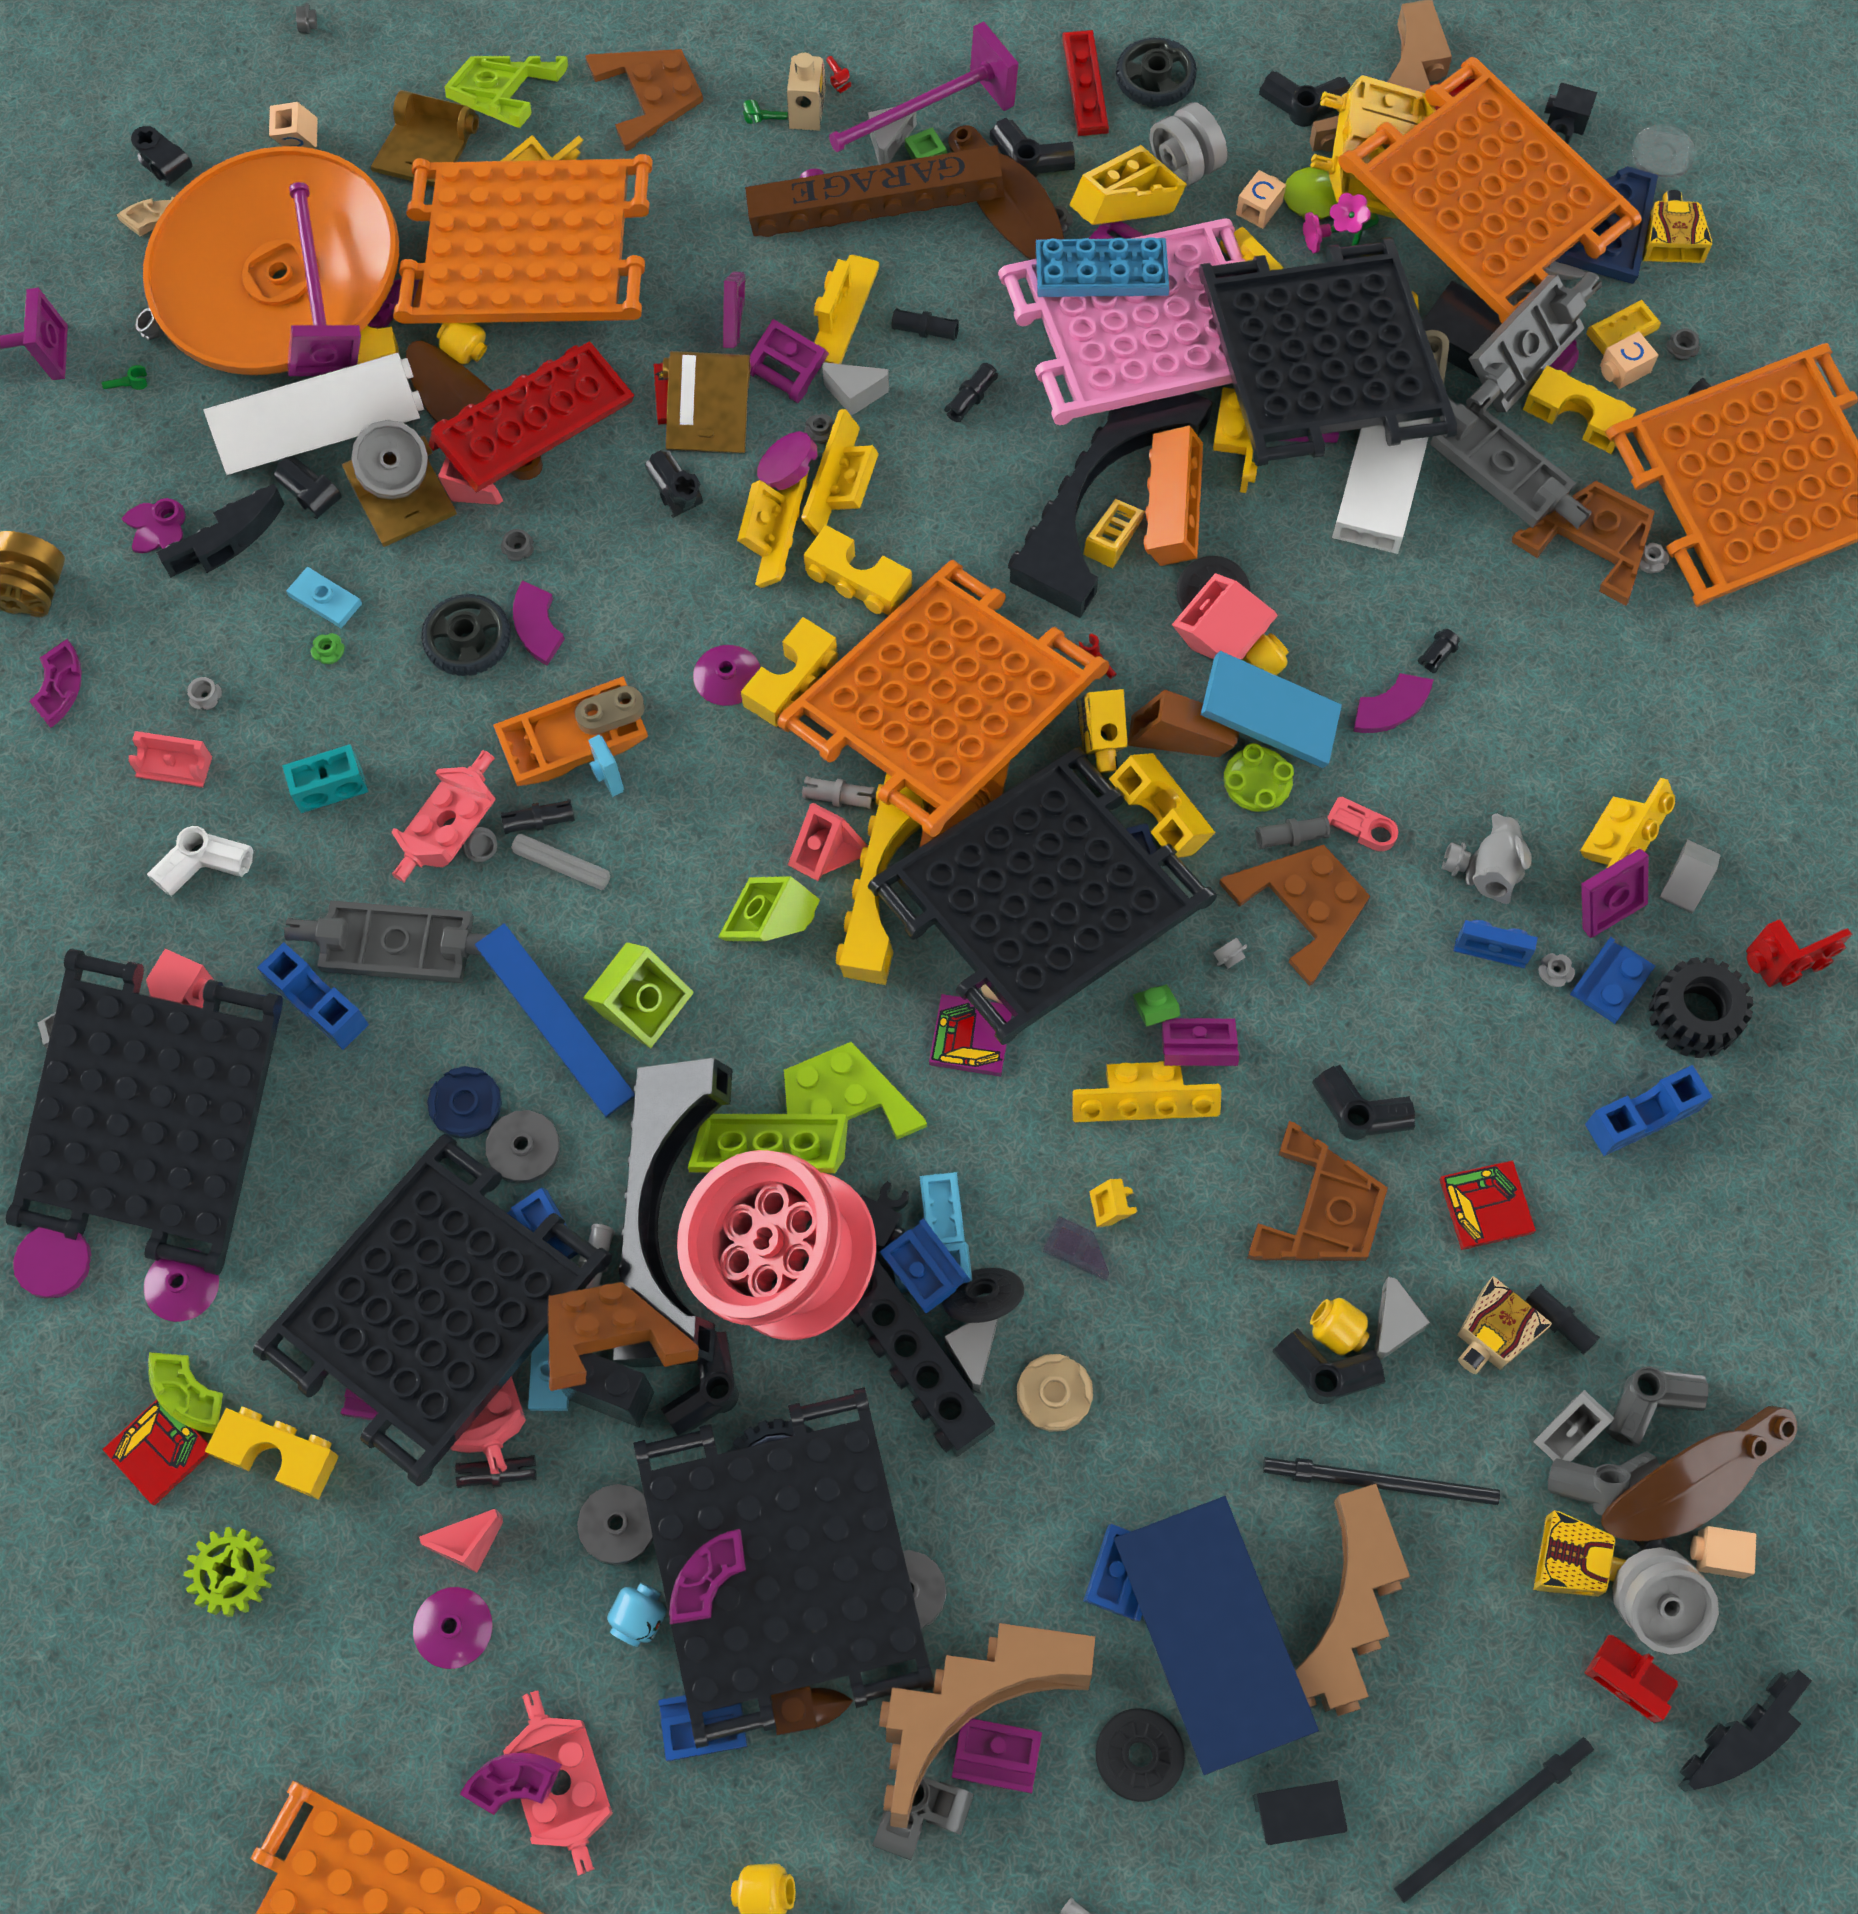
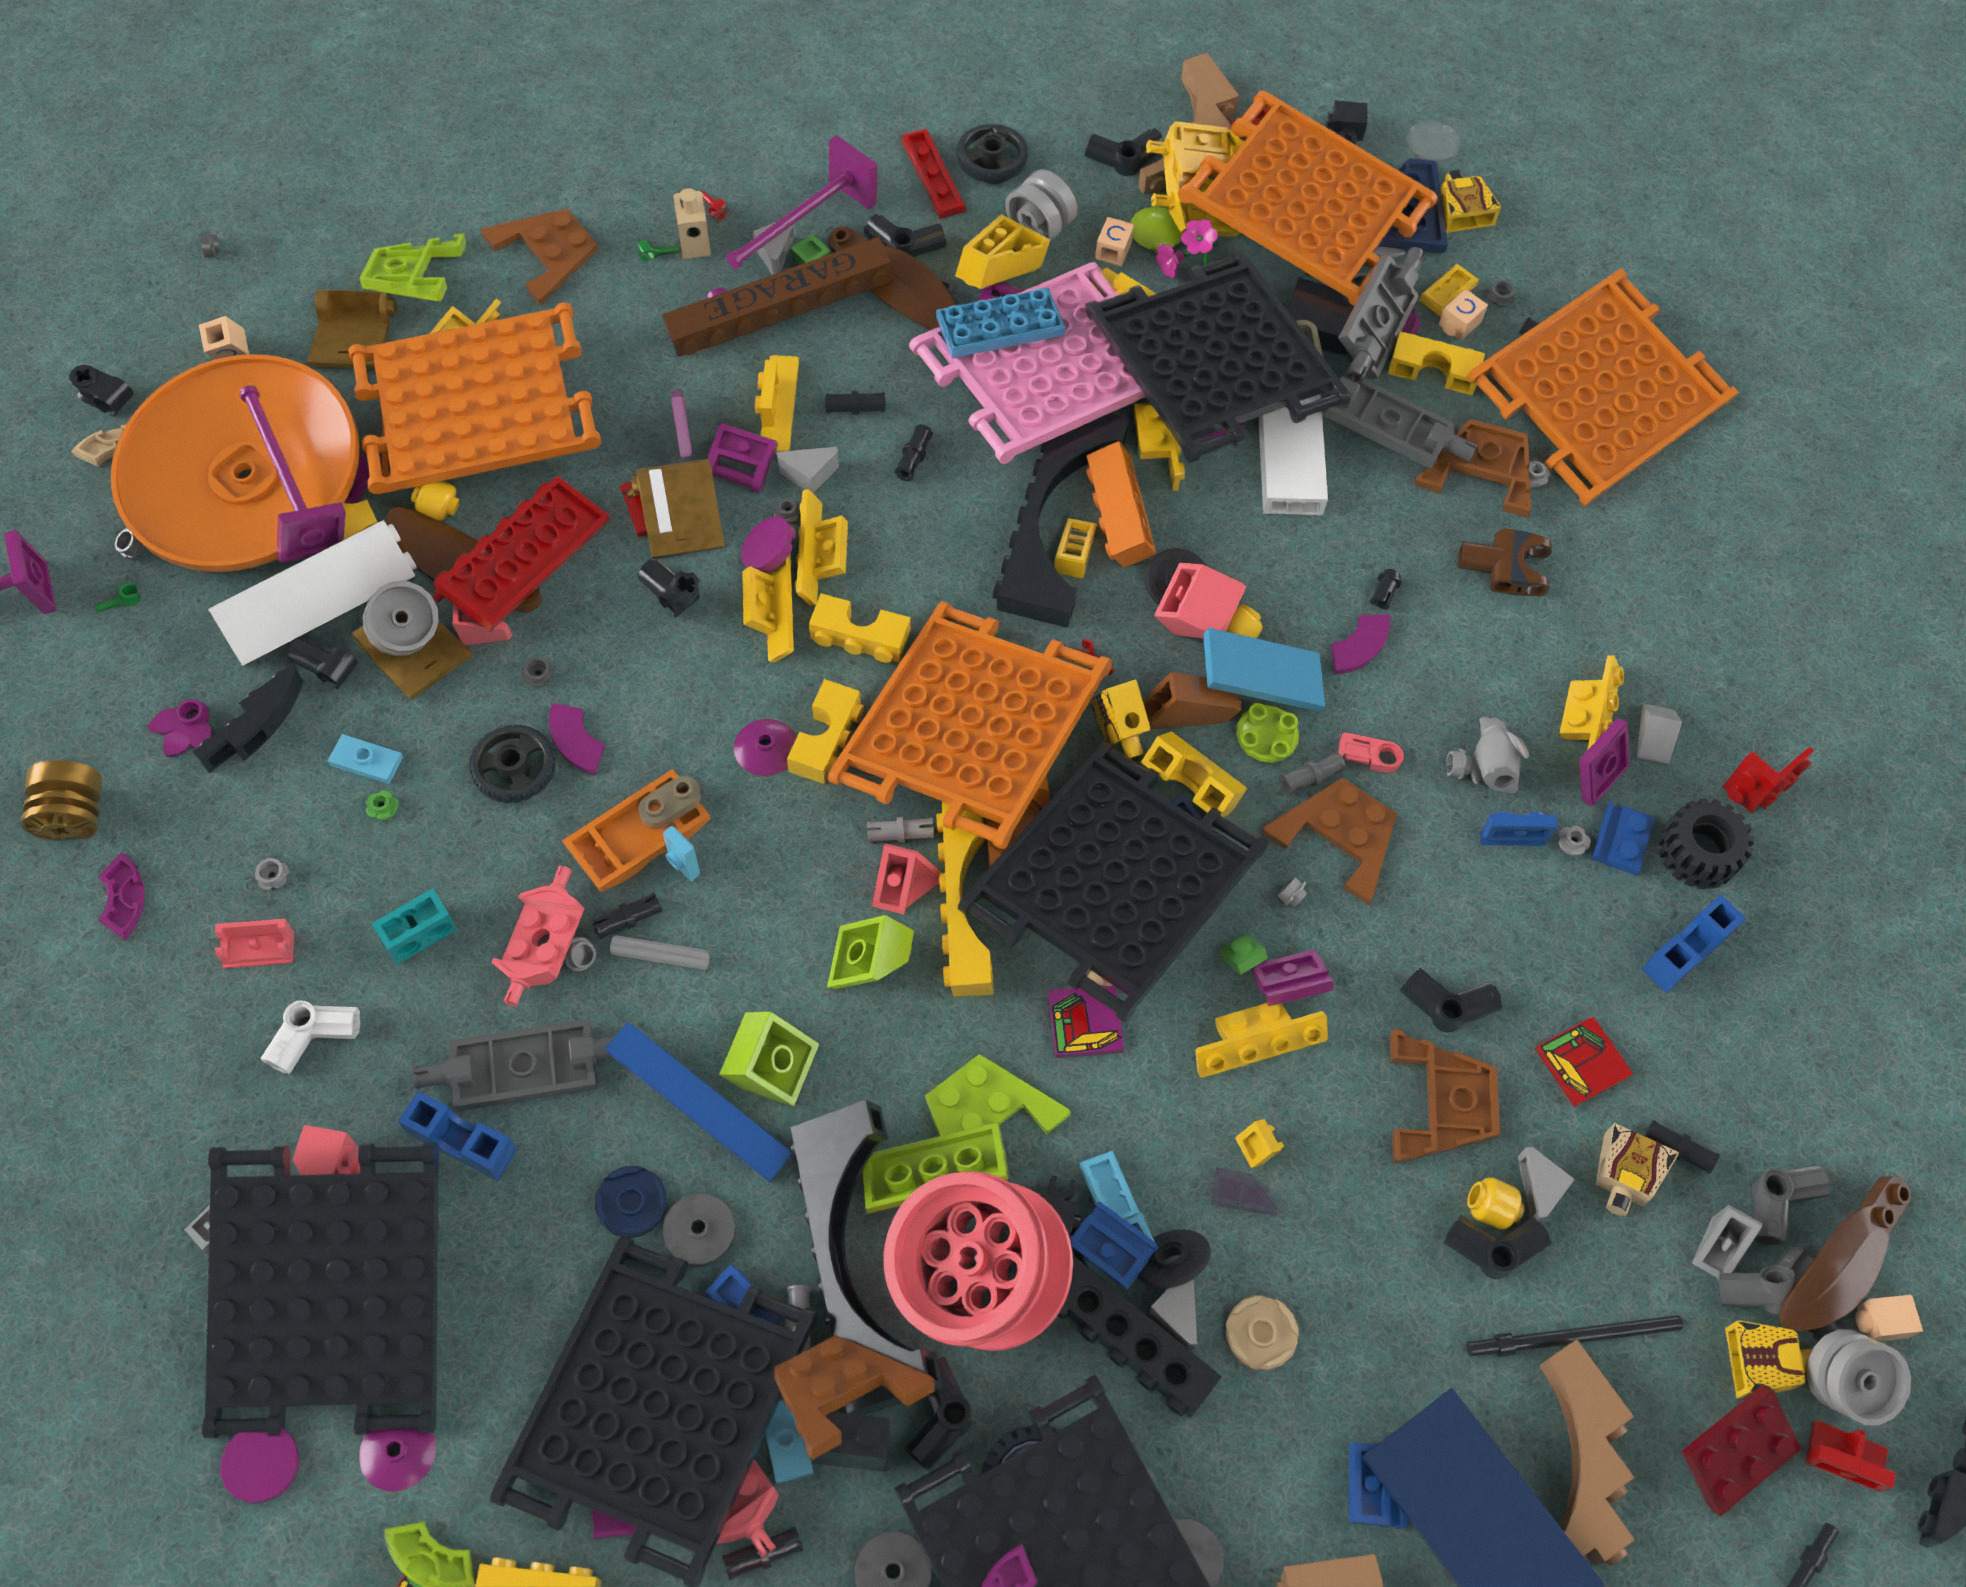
camera: 20 degrees left, 5 degrees down
(1515, 1640) = (1741, 1450): none -> dark red plate
(1584, 648) = (1507, 561): none -> reddish brown connector

